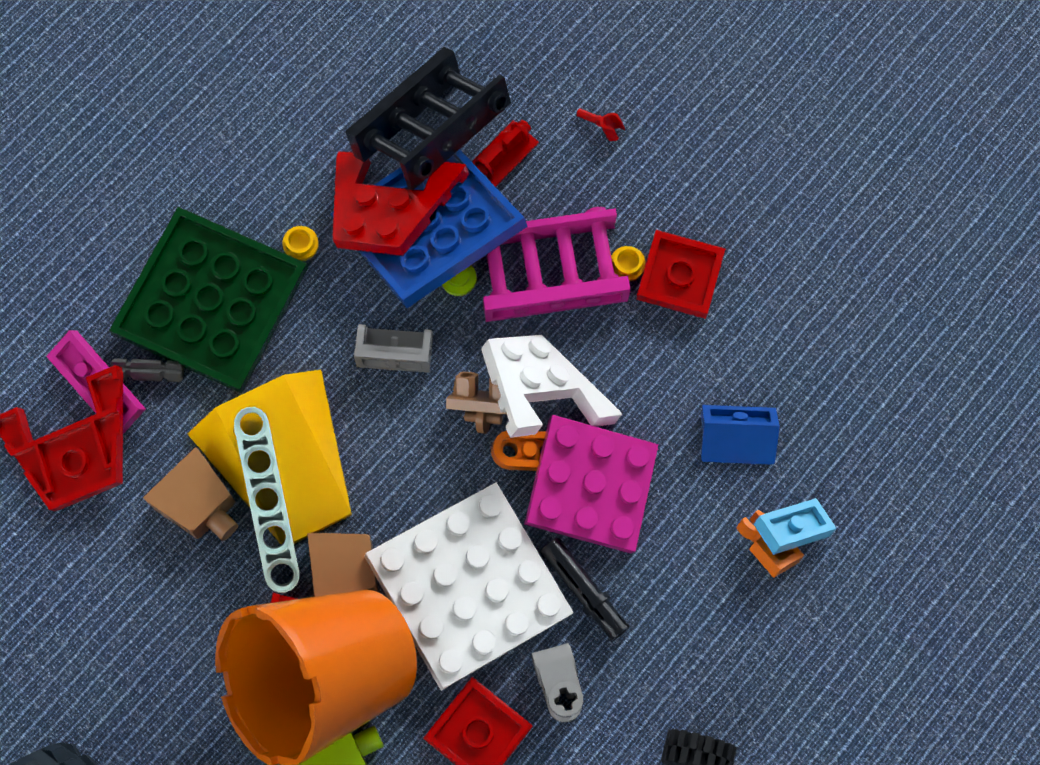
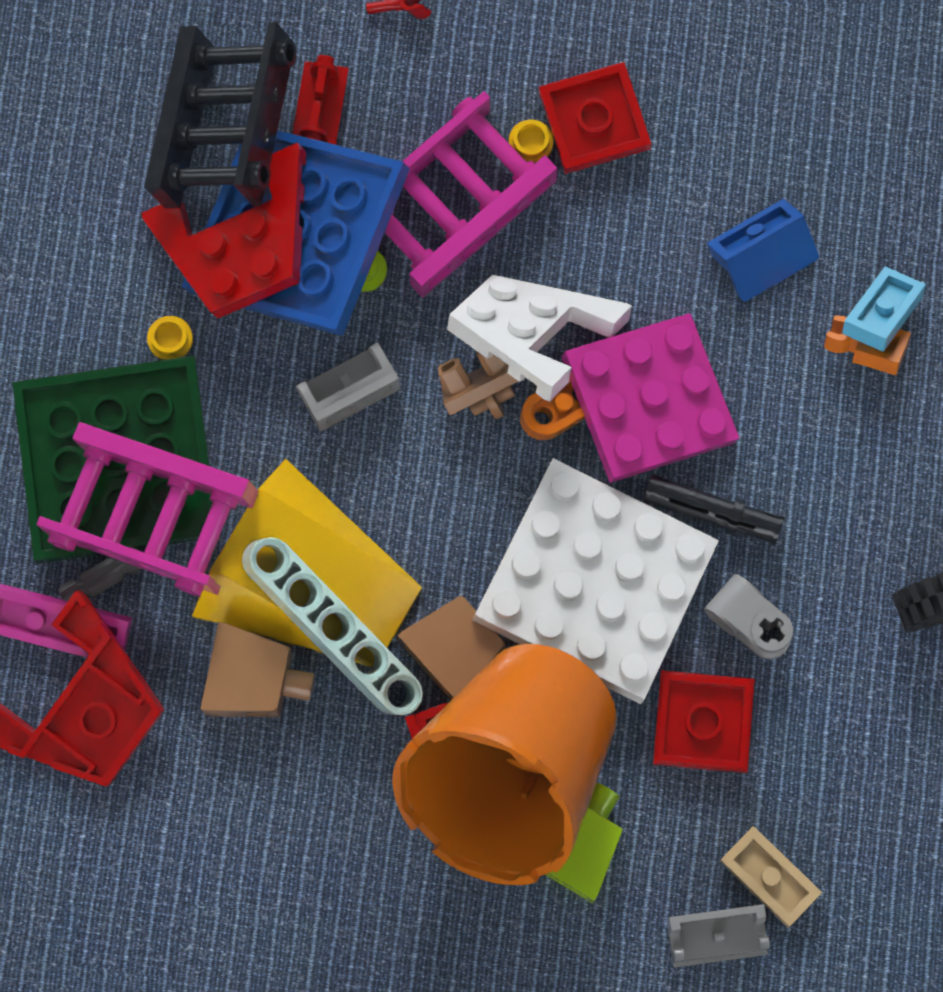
camera: 30 degrees left, 5 degrees up
(235, 337) = (141, 464): none -> dark pink fence

